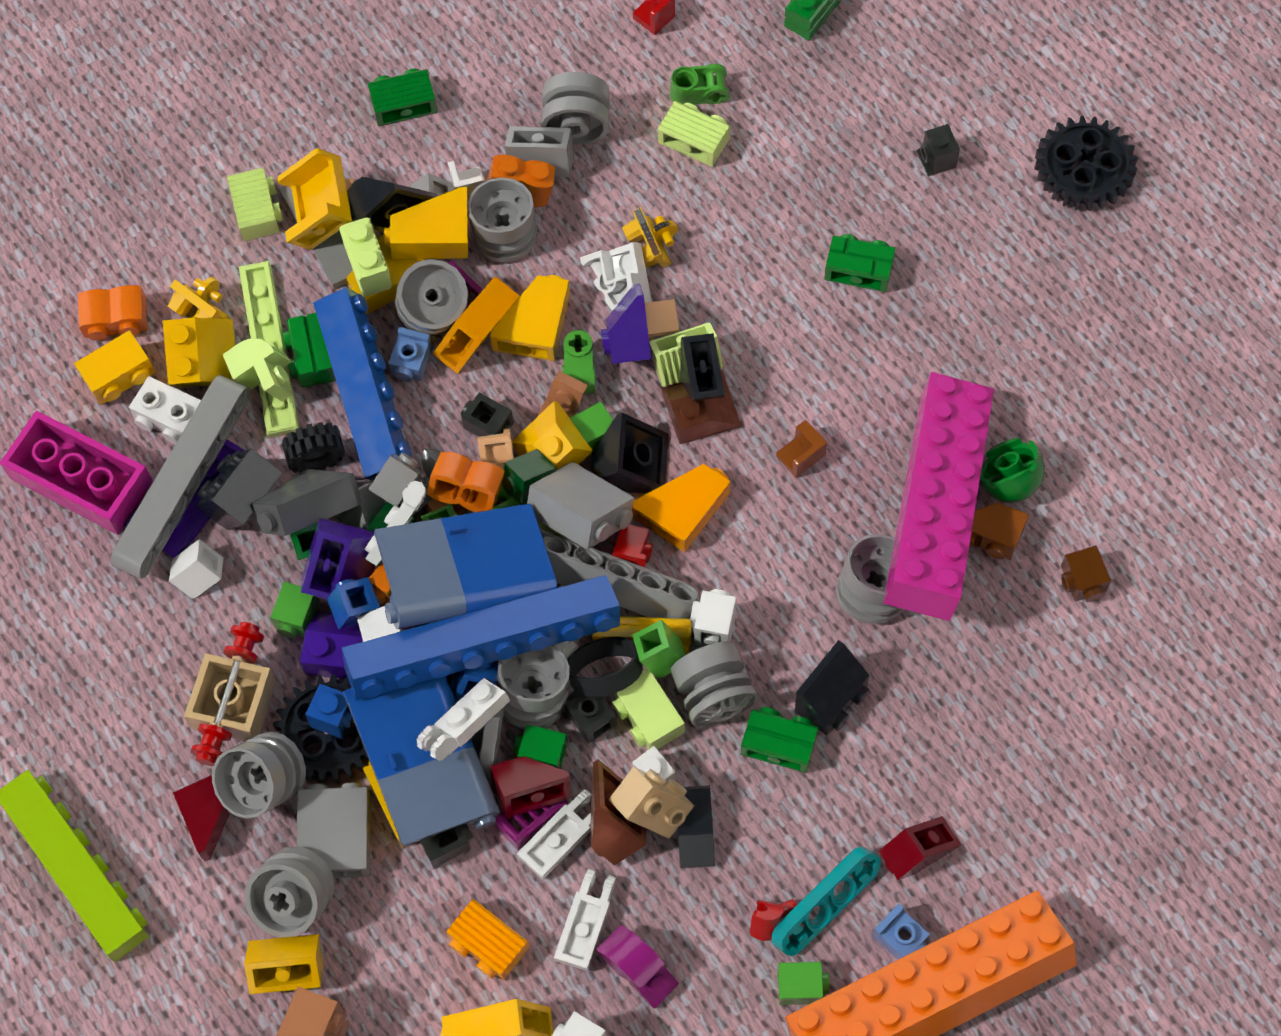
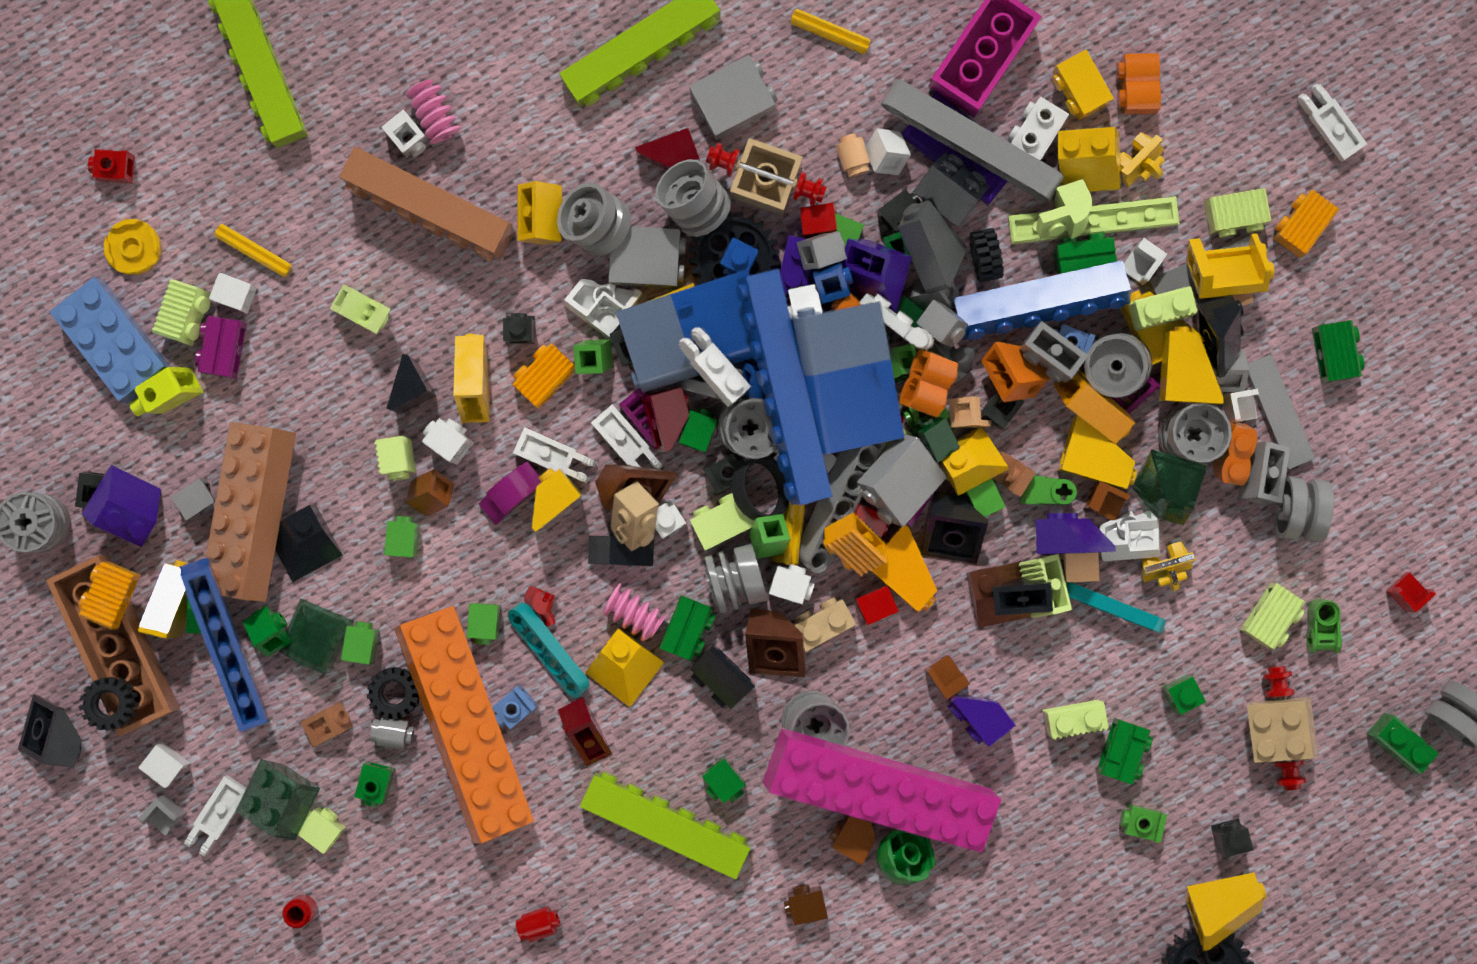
camera: 90 degrees right, 20 degrees up
(53, 648) = (830, 31): none -> yellow axle
(134, 749) = (733, 97): none -> light grey brick
(153, 123) = (1332, 123): none -> white hinge
(201, 606) = (853, 155): none -> light nougat brick
(263, 138) = (1305, 223): none -> light orange brick
(267, 550) = (892, 212): none -> pearl dark grey brick
(280, 634) = (818, 219): none -> red panel
(309, 287) = (1144, 261): none -> white panel
(316, 618) = (822, 250): none -> light grey brick
(395, 881) = (599, 303): none -> white slope
(421, 362) = (1053, 353): none -> light grey brick
(431, 976) = (519, 329): none -> pearl dark grey brick
(445, 405) = (1012, 373): none -> orange torso
(459, 879) = (593, 356): none -> bright green brick
(468, 148) = (1279, 410): none -> light grey tile
(562, 238) = (1169, 486): none -> clear green slope
(582, 306) = (1106, 500): none -> dark orange panel
(640, 906) = (552, 496): none -> yellow slope
(660, 550) = (855, 544): none -> light orange brick
(702, 284) = (1115, 608): none -> teal beam
(729, 531) = (876, 605): none -> red panel
(757, 585) = (825, 623): none -> tan brick
(768, 801) = (633, 613): none -> bright pink piece
(786, 635) = (774, 645): none -> copper slope
(789, 209) = (1183, 694): none -> green brick
(813, 110) = (1282, 729): none -> tan brick
(831, 312) = (1075, 719): none -> yellowish green brick
(834, 811) = (624, 667): none -> yellow slope
(844, 402) = (983, 715): none -> dark purple slope
(935, 236) = (1155, 826): none -> bright green brick
(955, 680) = (723, 781): none -> green brick
(1013, 151) = (1224, 906): none -> yellow slope
(1017, 743) = (666, 825): none -> lime brick
(1162, 880) = (537, 924): none -> red brick

